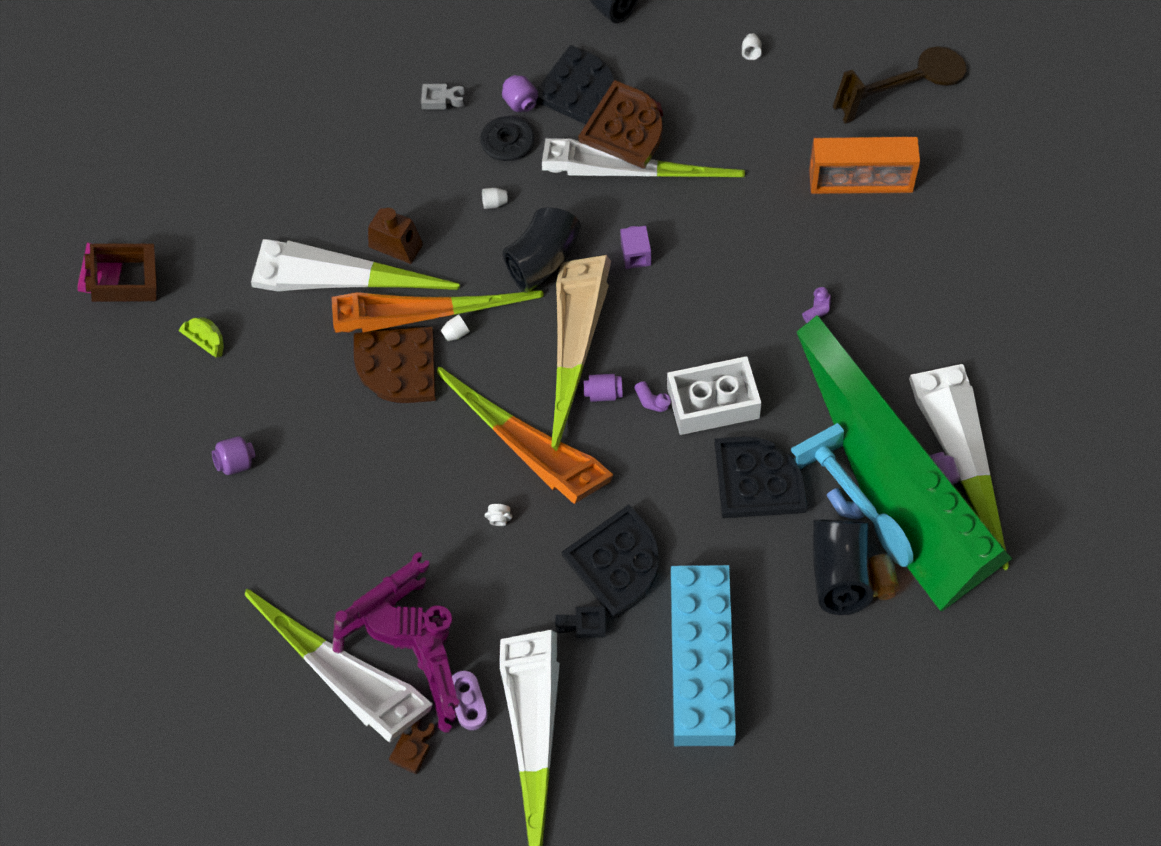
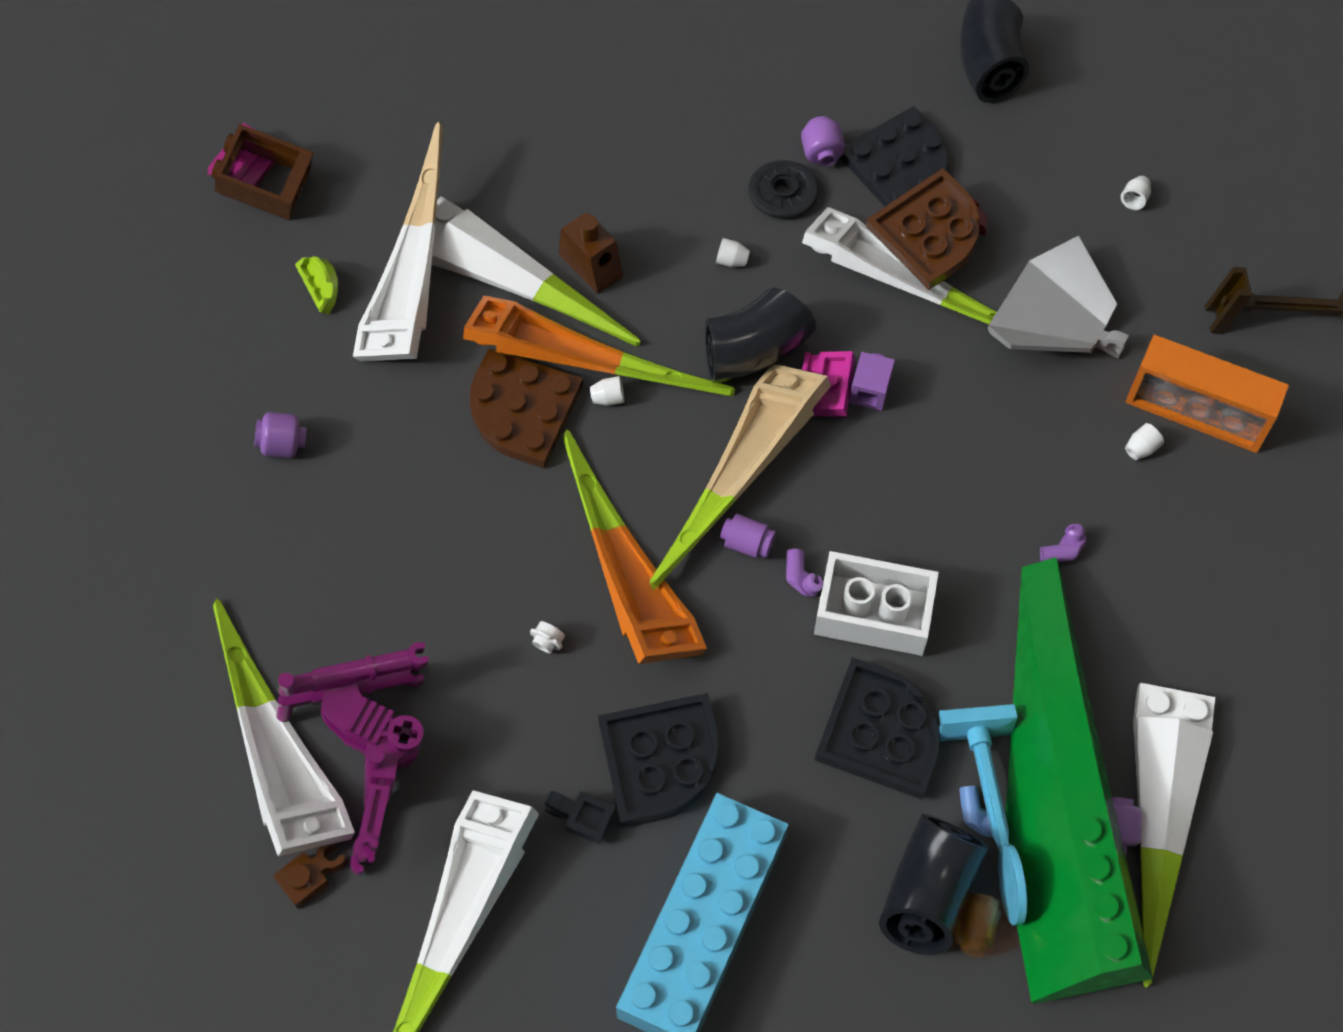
camera: 20 degrees right, 0 degrees up
(274, 329) = (400, 302): none -> white plate
(438, 96) = (726, 107): light grey plate -> none
(469, 701) = (397, 848): lavender plate -> none
(608, 246) = (839, 370): none -> dark pink plate
(737, 144) = (1059, 306): none -> light grey panel
(837, 214) = (1144, 442): none -> white hose

